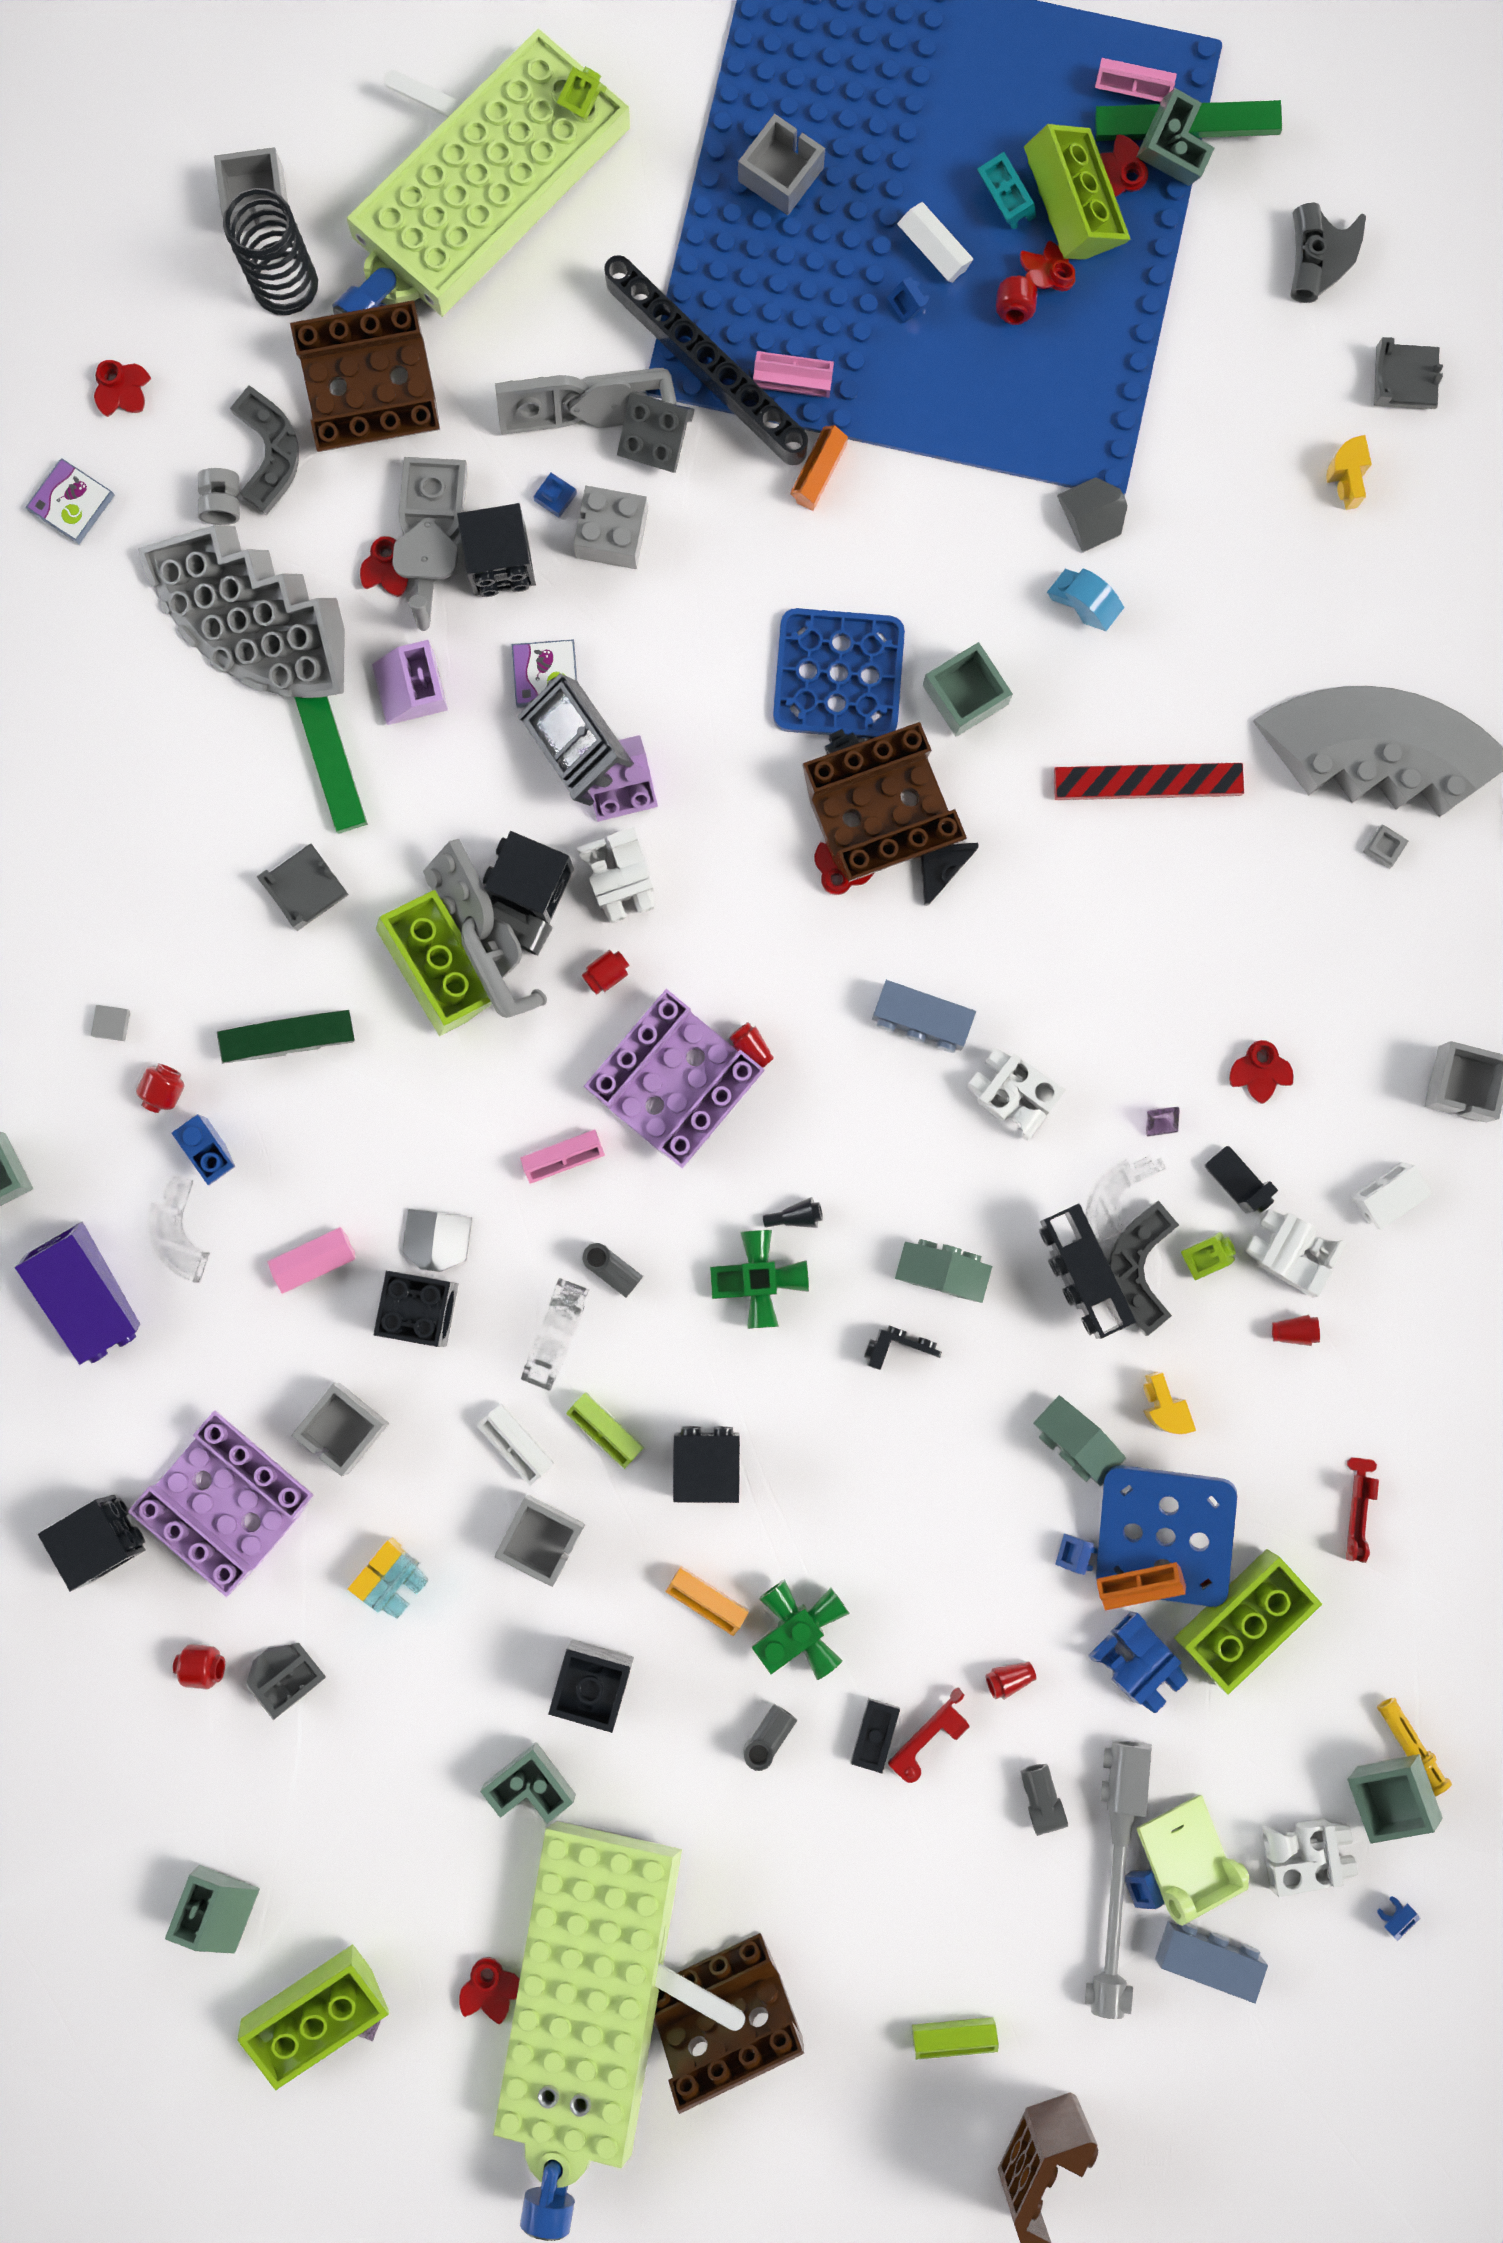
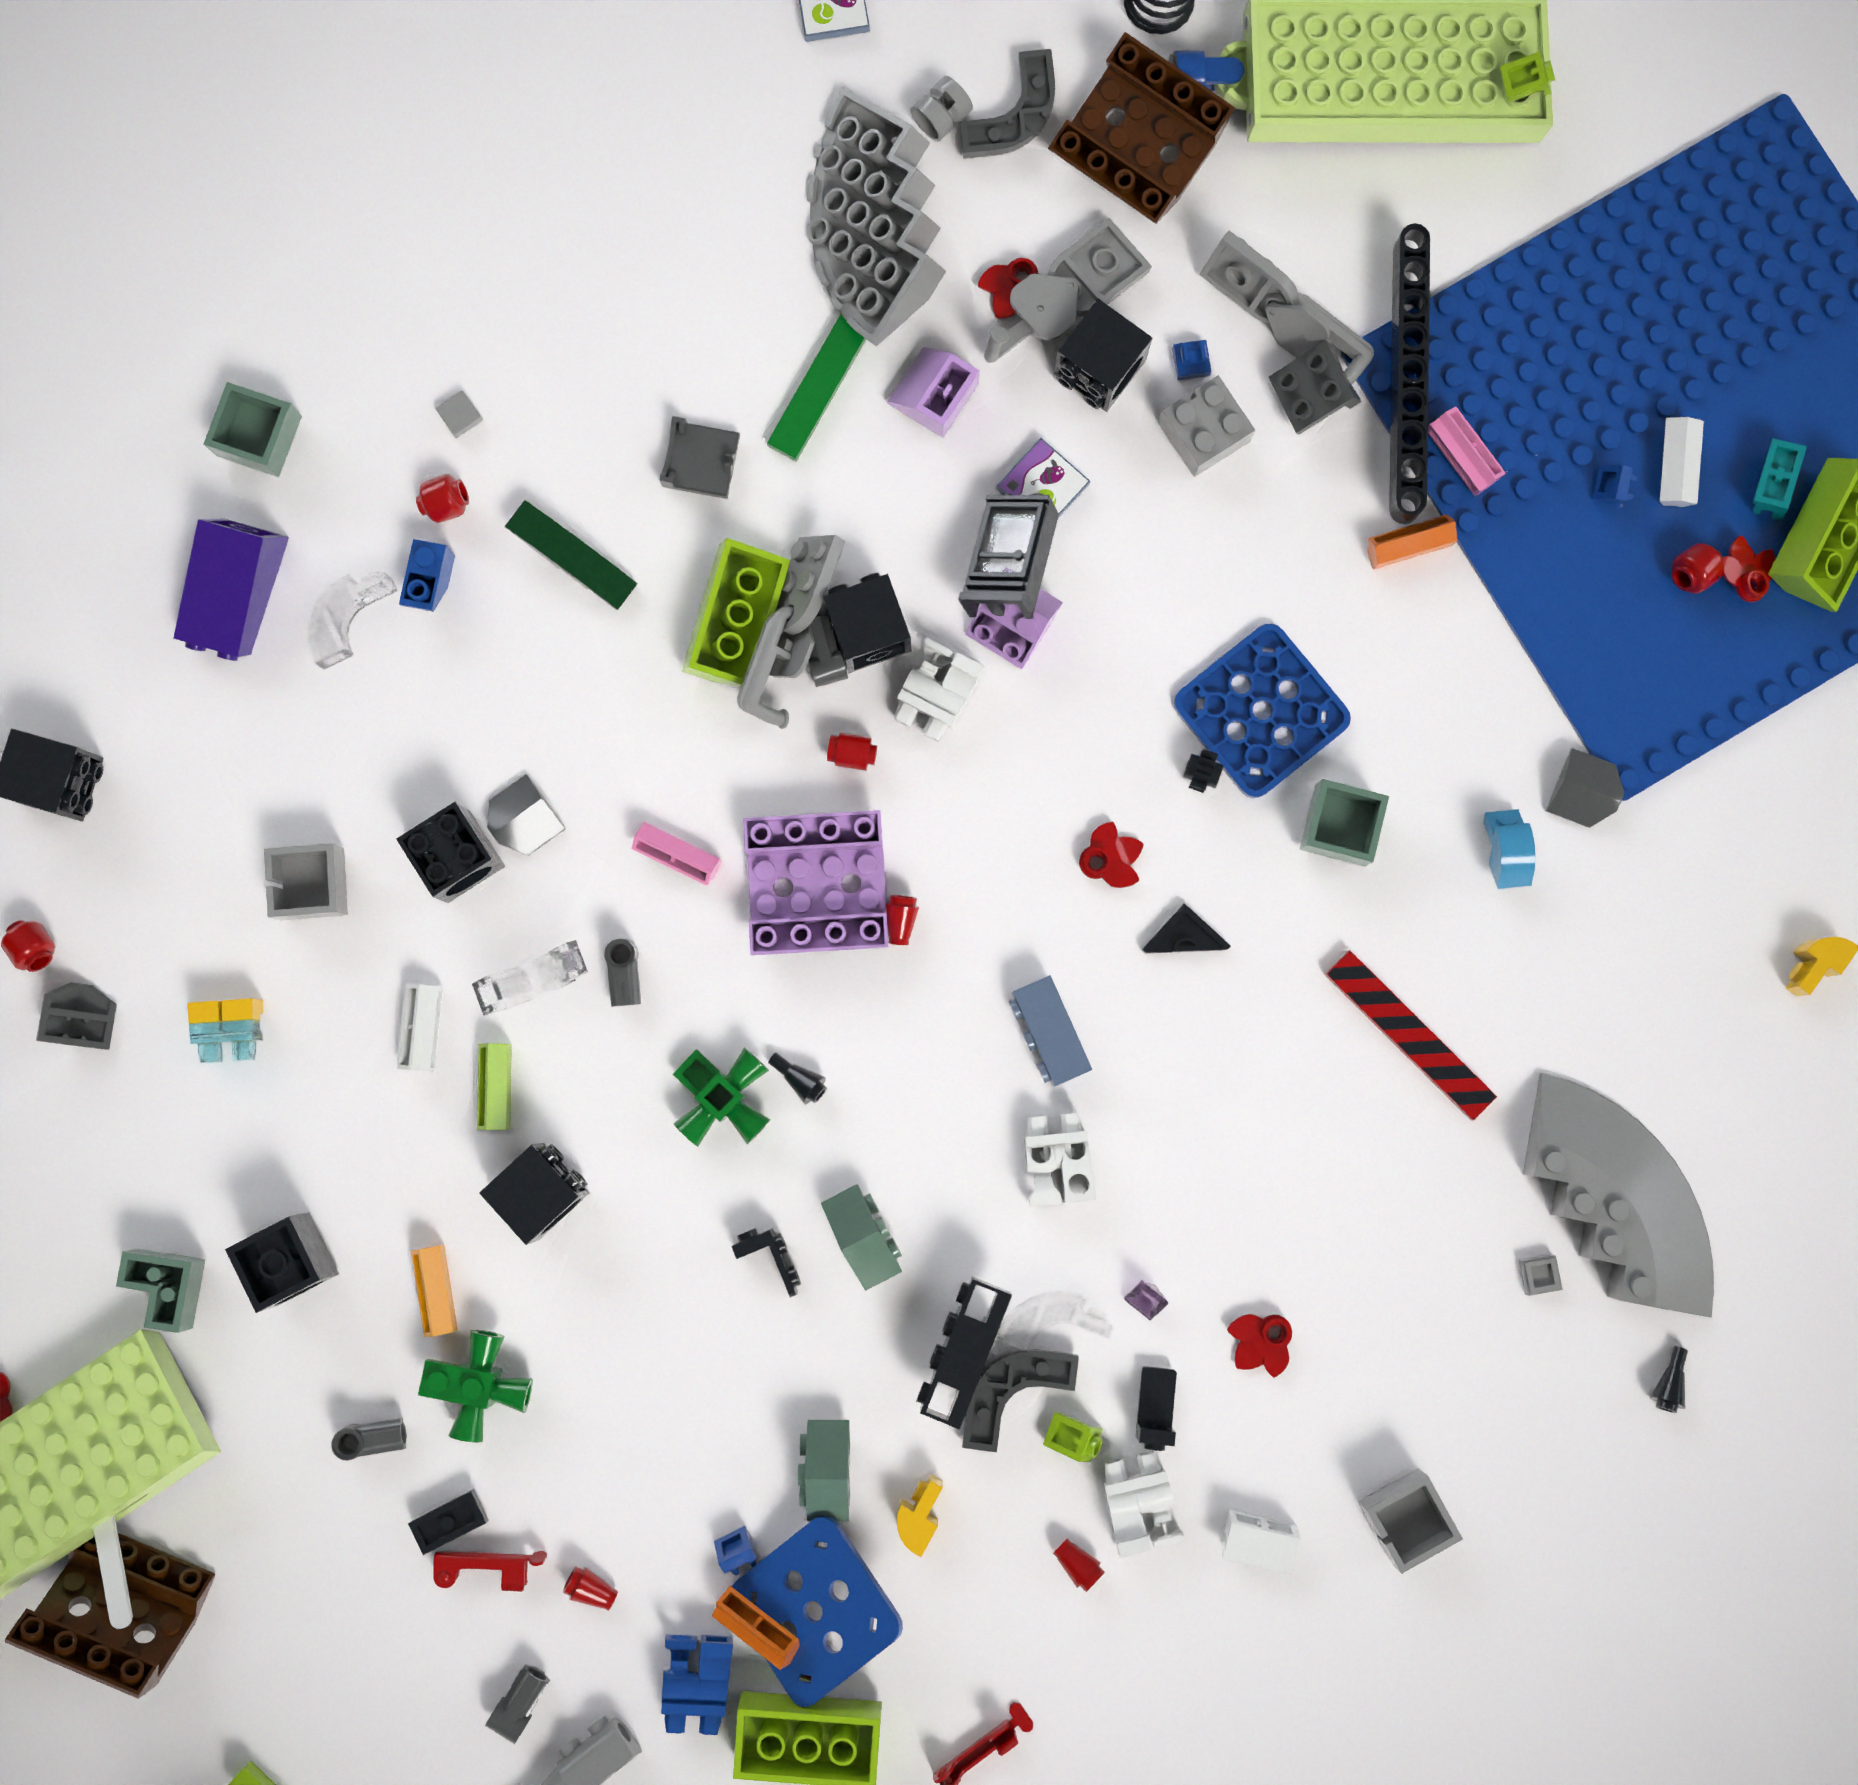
camera: 50 degrees right, 0 degrees up
(208, 1523) = (142, 849): lavender slope -> none
(311, 1260) = (417, 737): bright pink piece -> none
(539, 1539) = (360, 1116): light grey piece -> none
(775, 169) = (1617, 280): light grey piece -> none
(870, 784) = (1195, 817): reddish brown slope -> none

